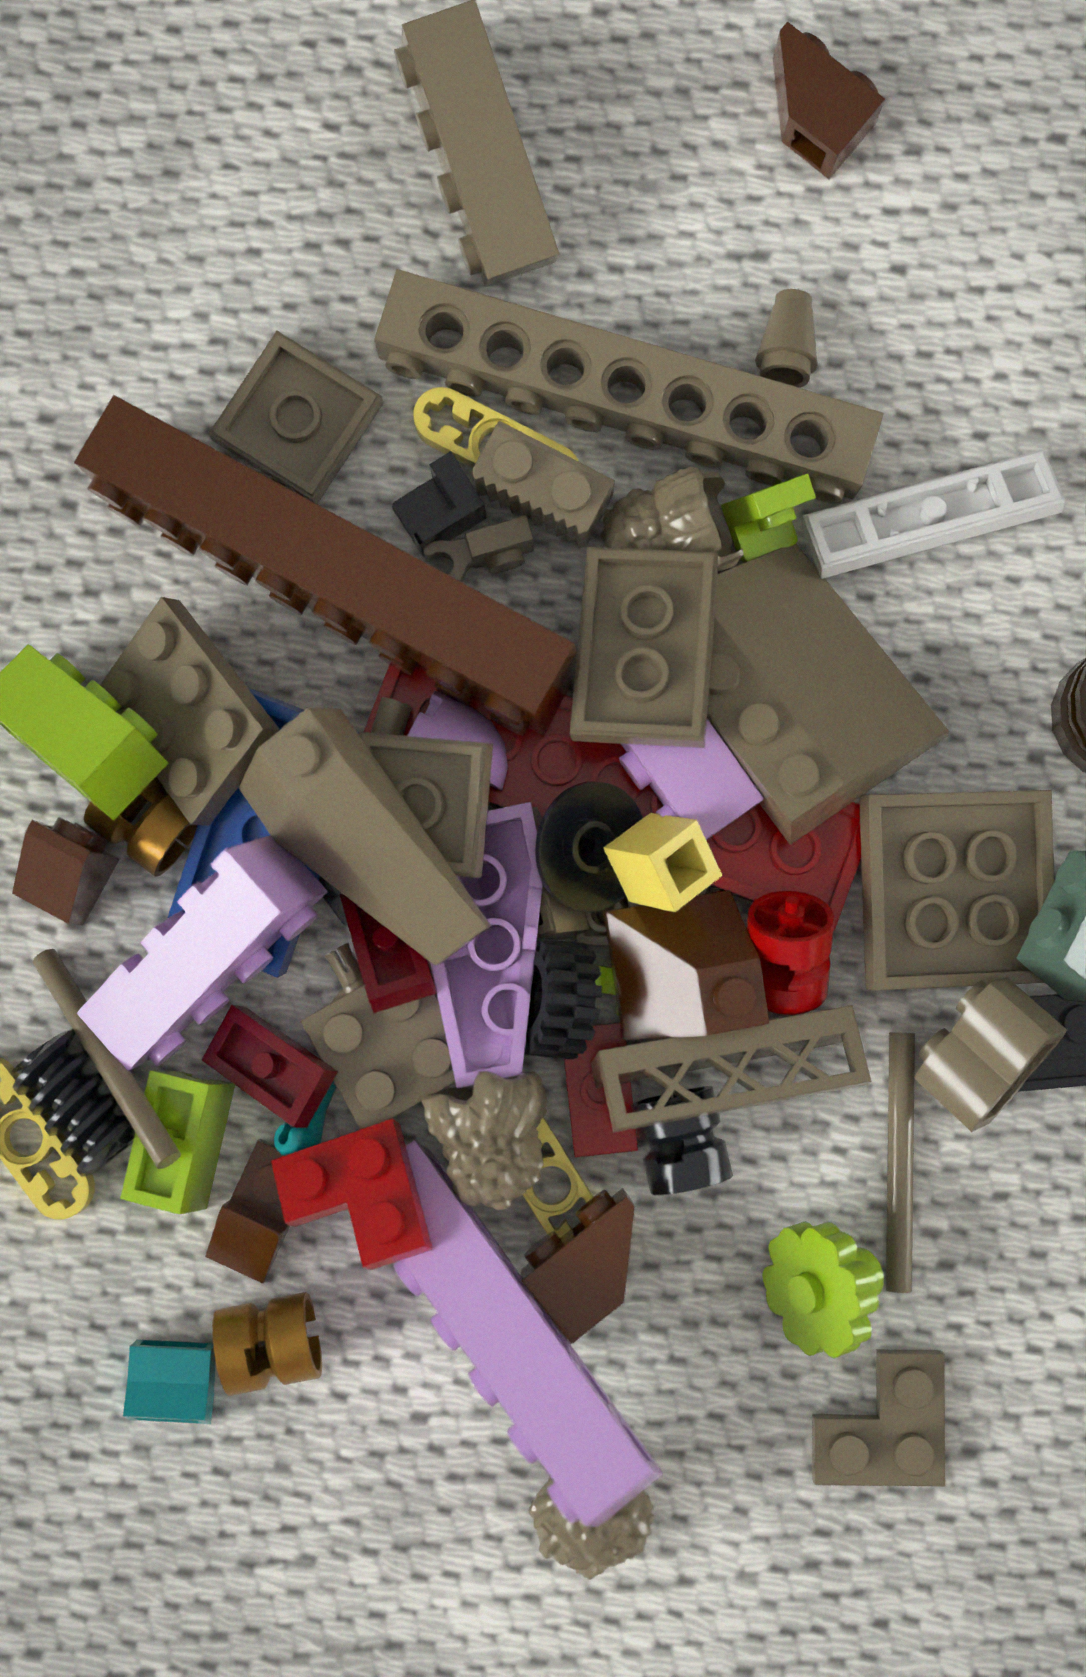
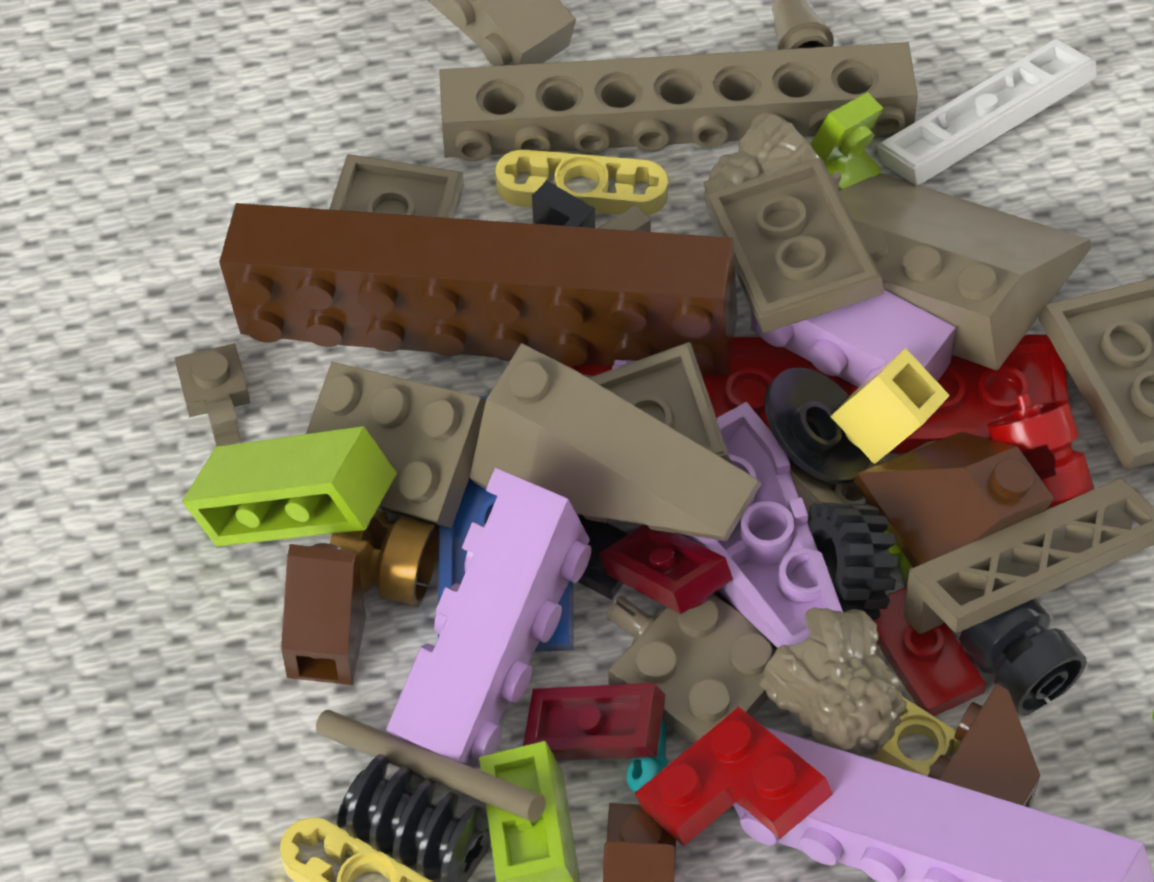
camera: 20 degrees left, 30 degrees down
(61, 553) = (214, 385): none -> dark tan plate
(542, 484) = (647, 171): dark tan brick -> none

